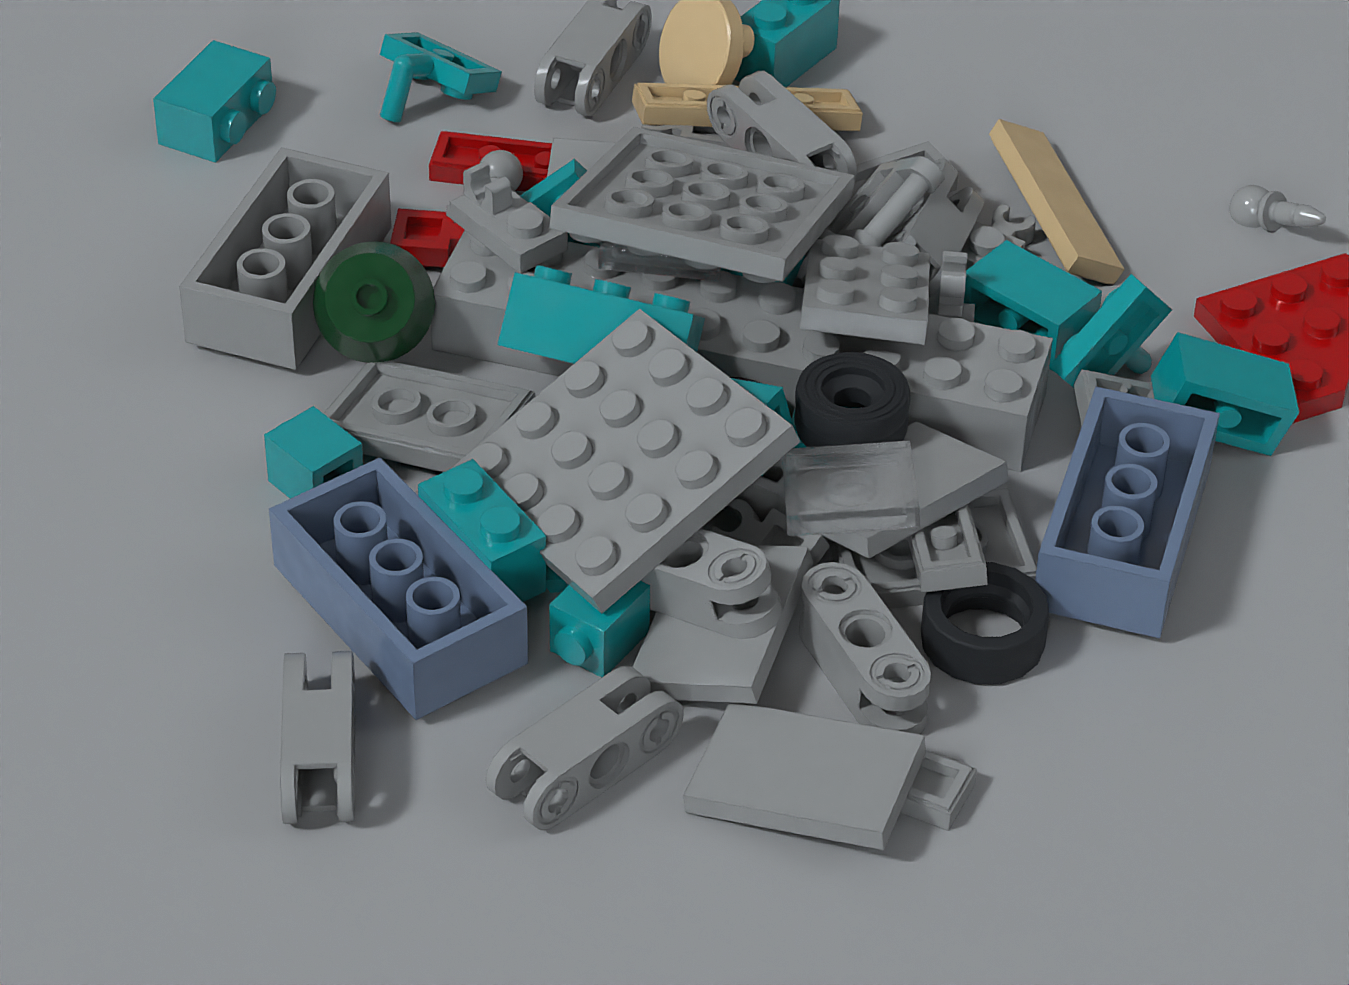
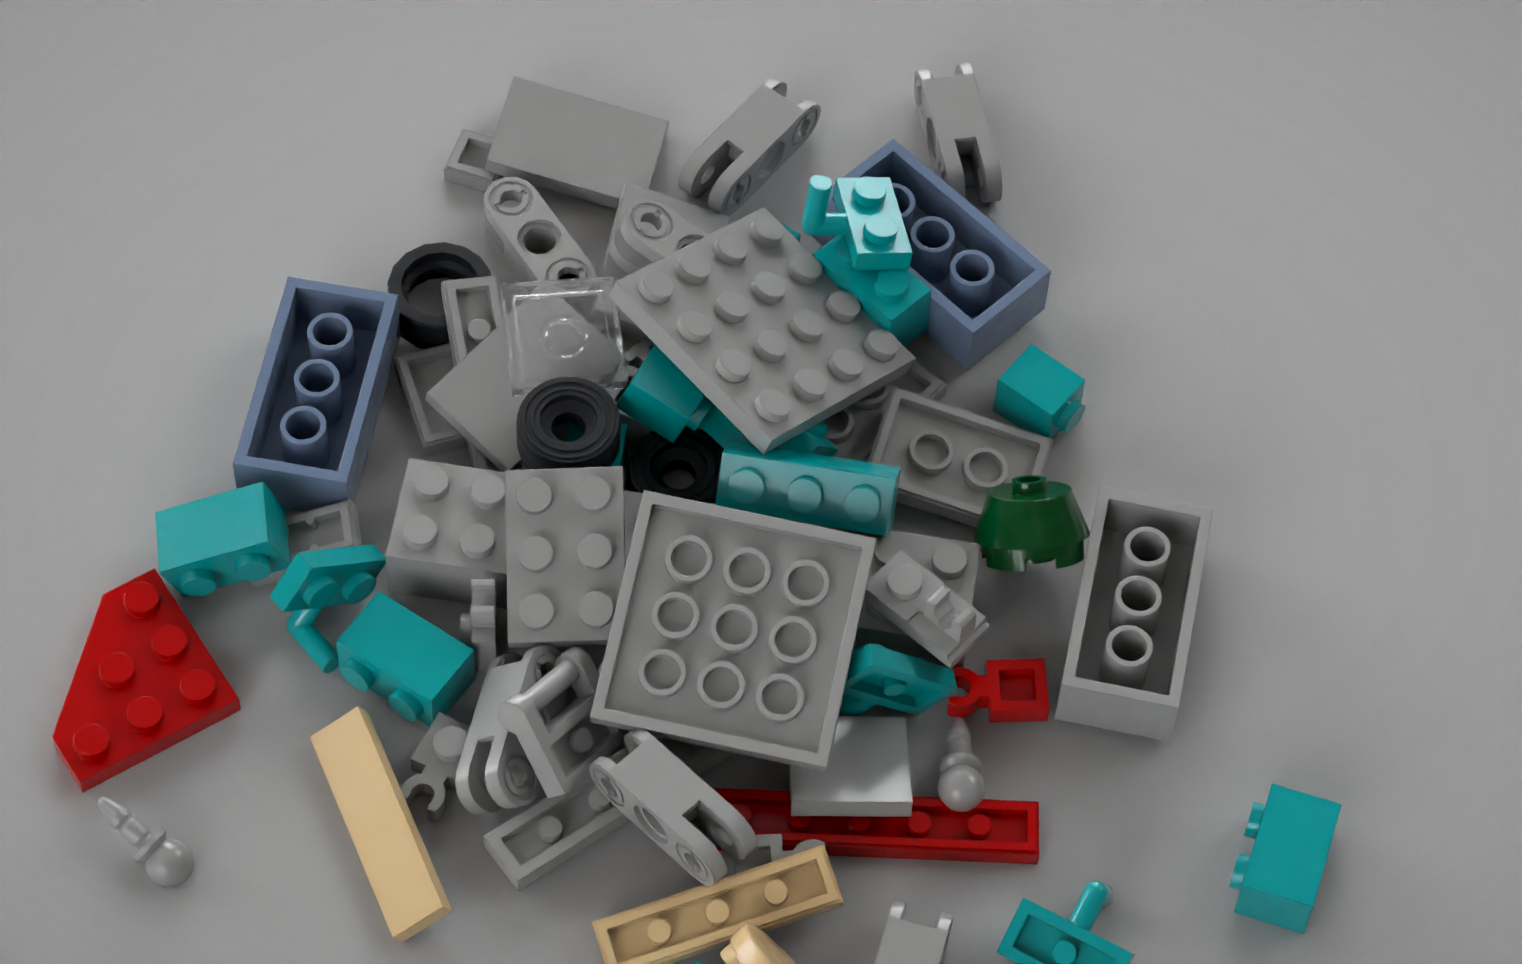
camera: 170 degrees right, 15 degrees up
(475, 533) = (865, 216): none -> teal plate

